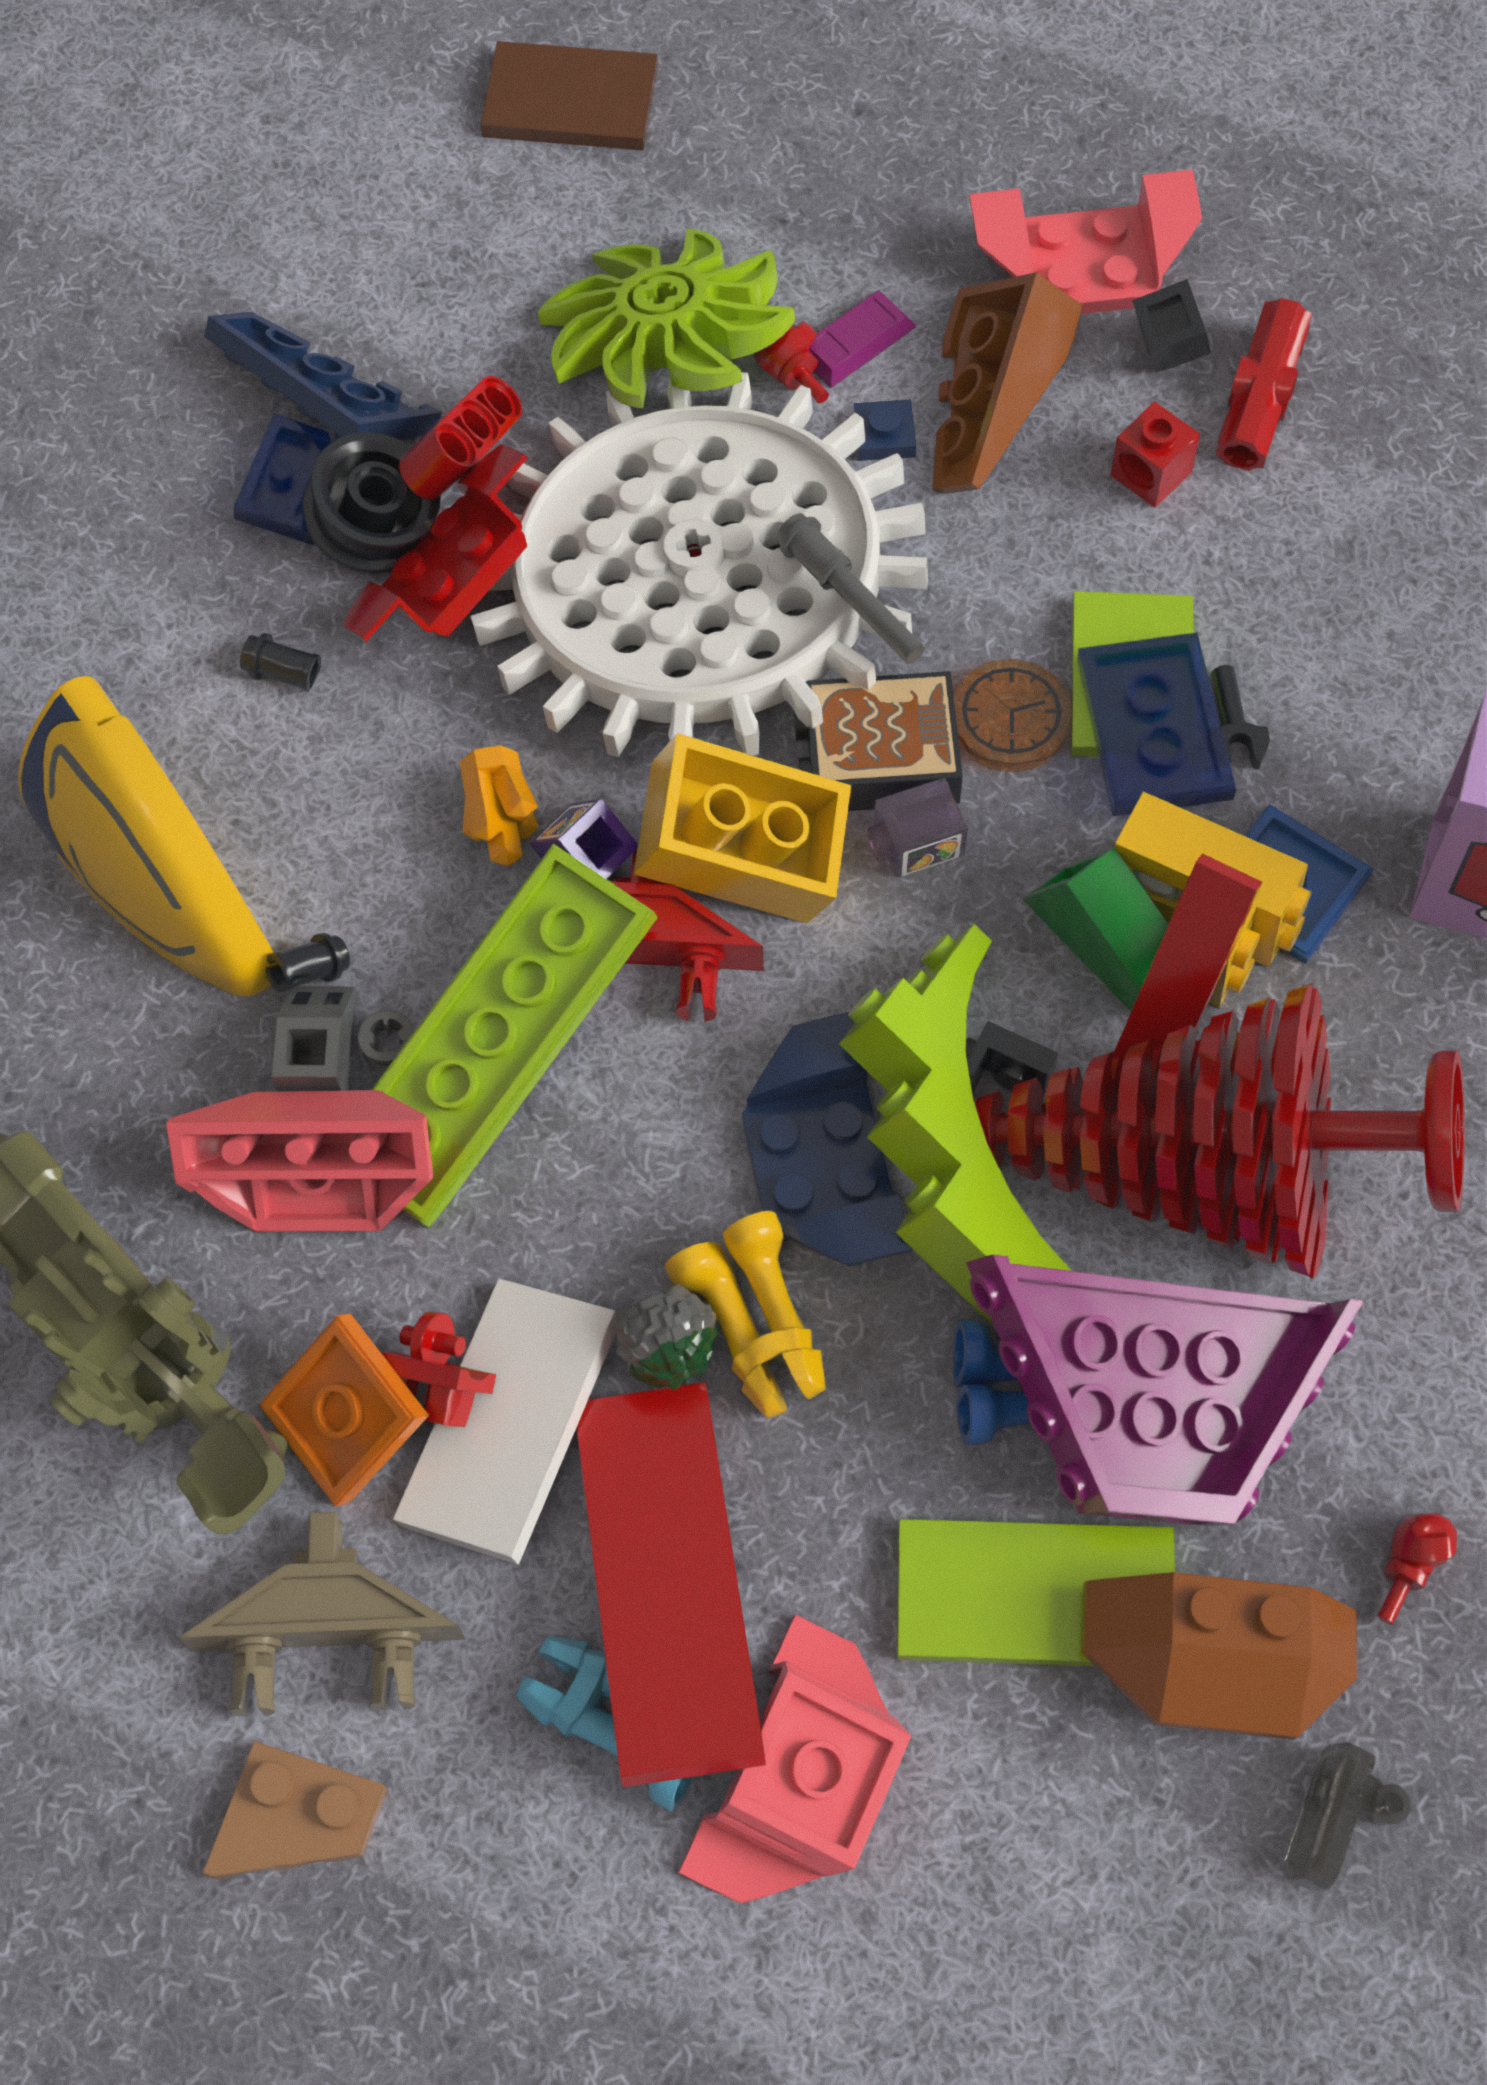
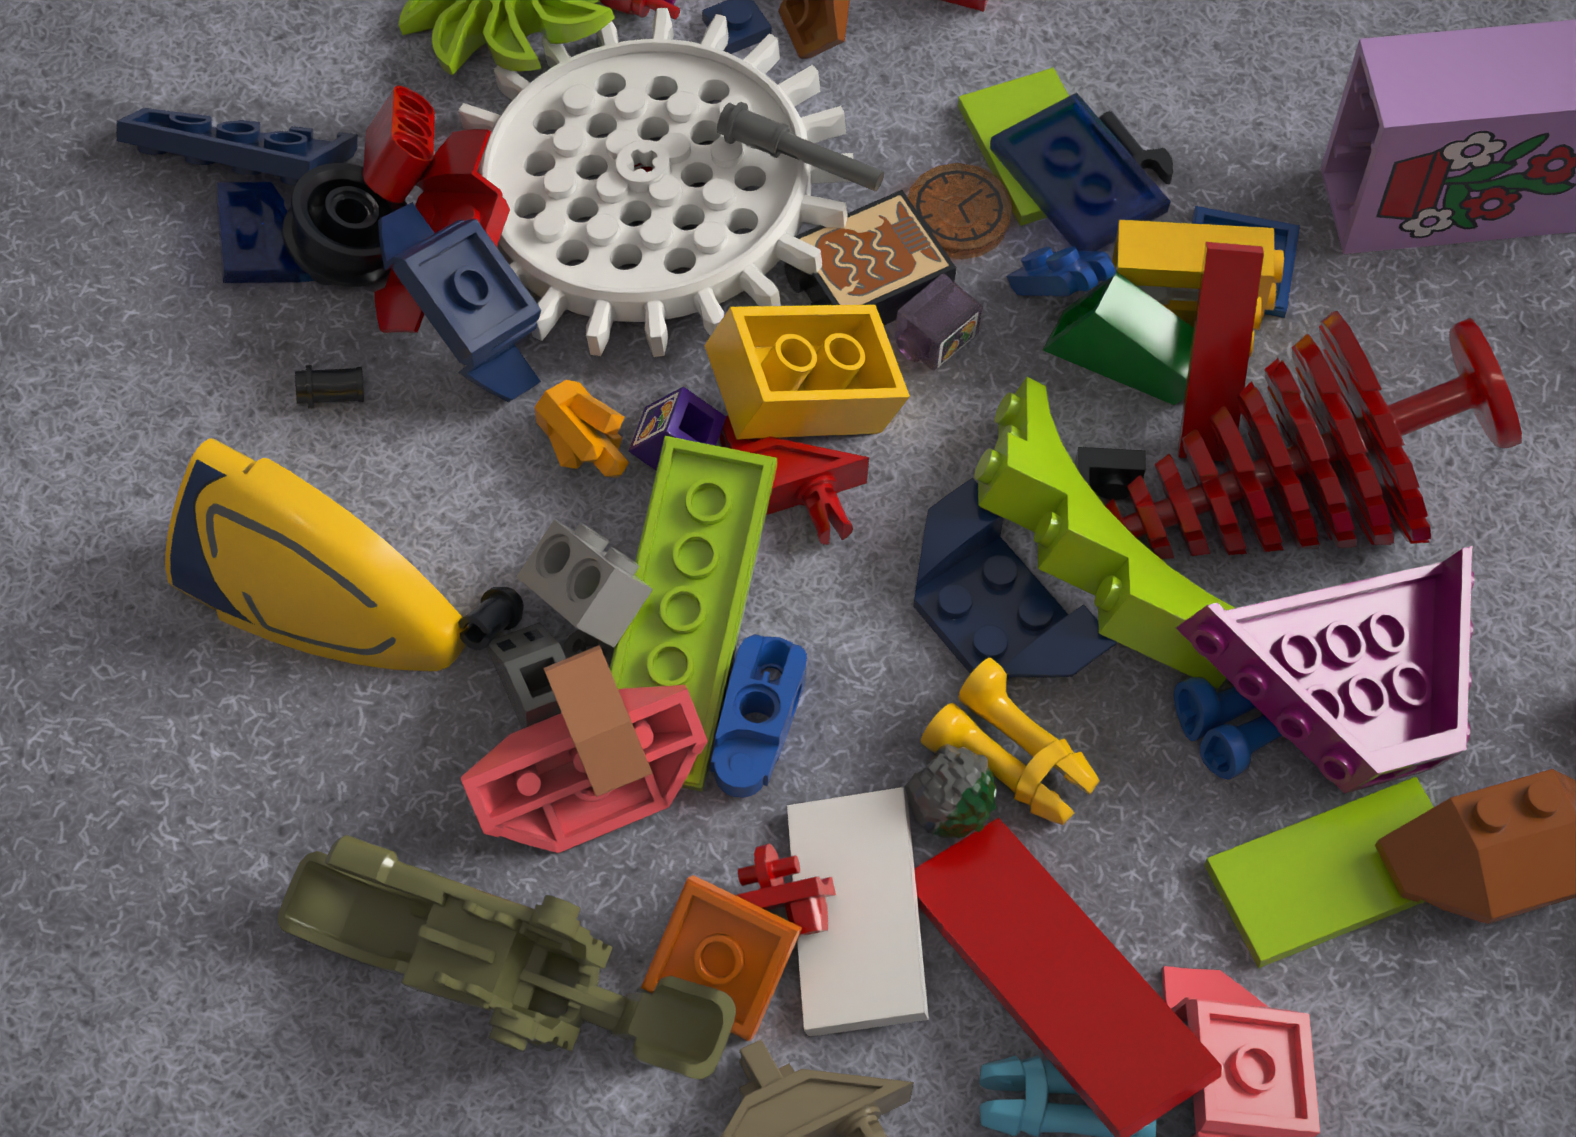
camera: 30 degrees left, 5 degrees down
(319, 1114) = (598, 721): none -> nougat slope
(405, 965) = (585, 582): none -> light grey brick
(430, 623) = (466, 296): none -> dark blue piece
(484, 1208) = (749, 750): none -> blue piece
(1069, 823) = (1060, 272): none -> blue hinge

